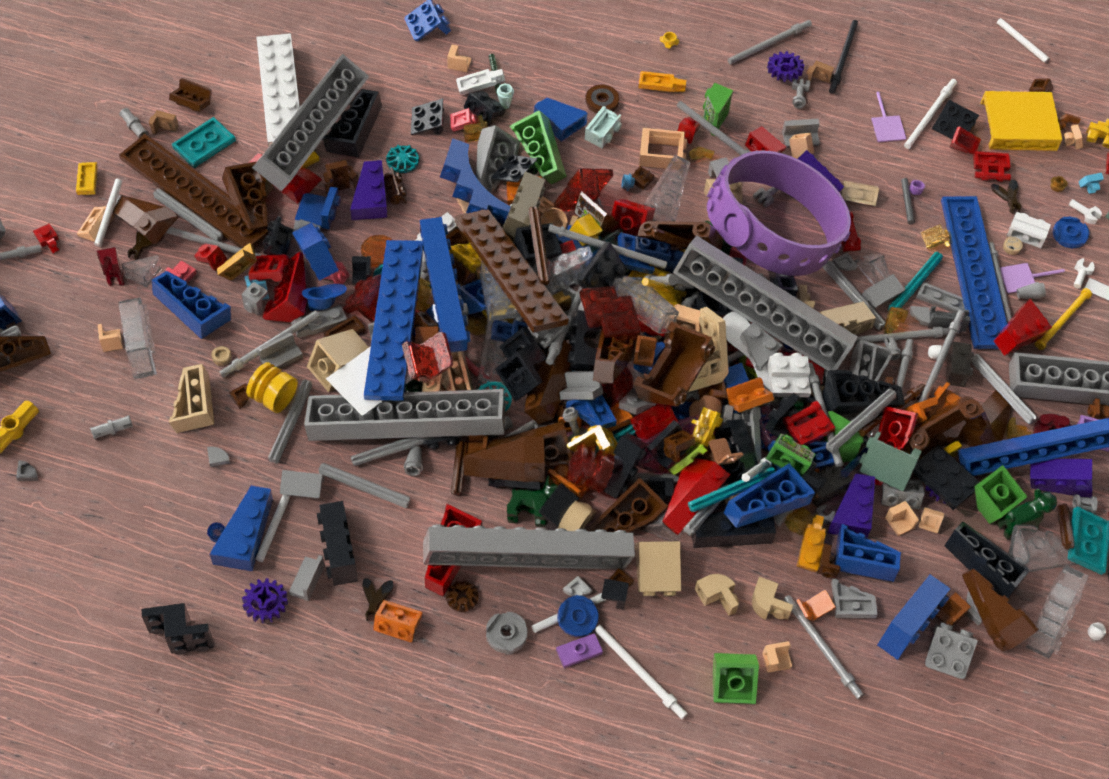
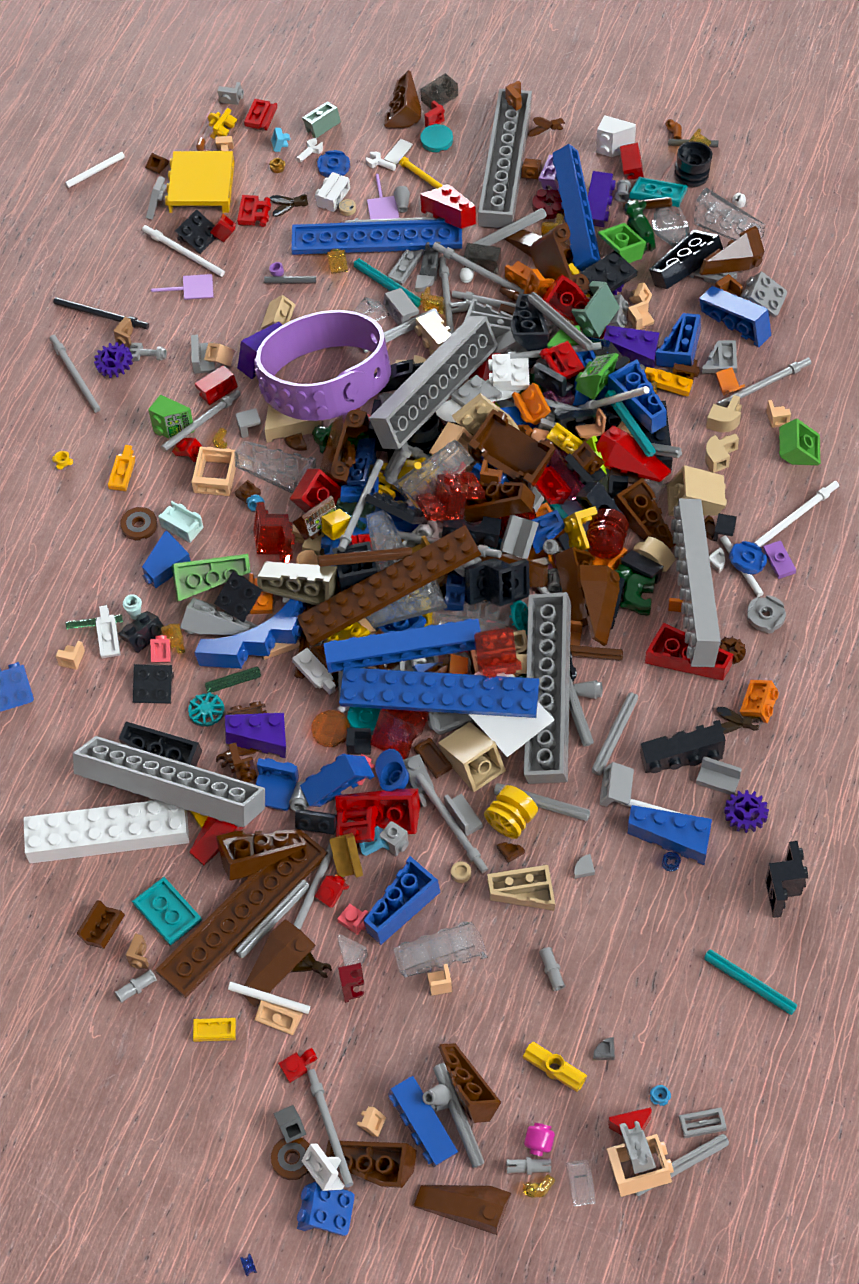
camera: 80 degrees left, 0 degrees up
(77, 599) = (750, 982): none -> teal axle
(432, 175) = (233, 679): none -> clear green axle
(702, 214) = (296, 442): none -> reddish brown tile
(992, 82) = (156, 196): none -> light grey wing

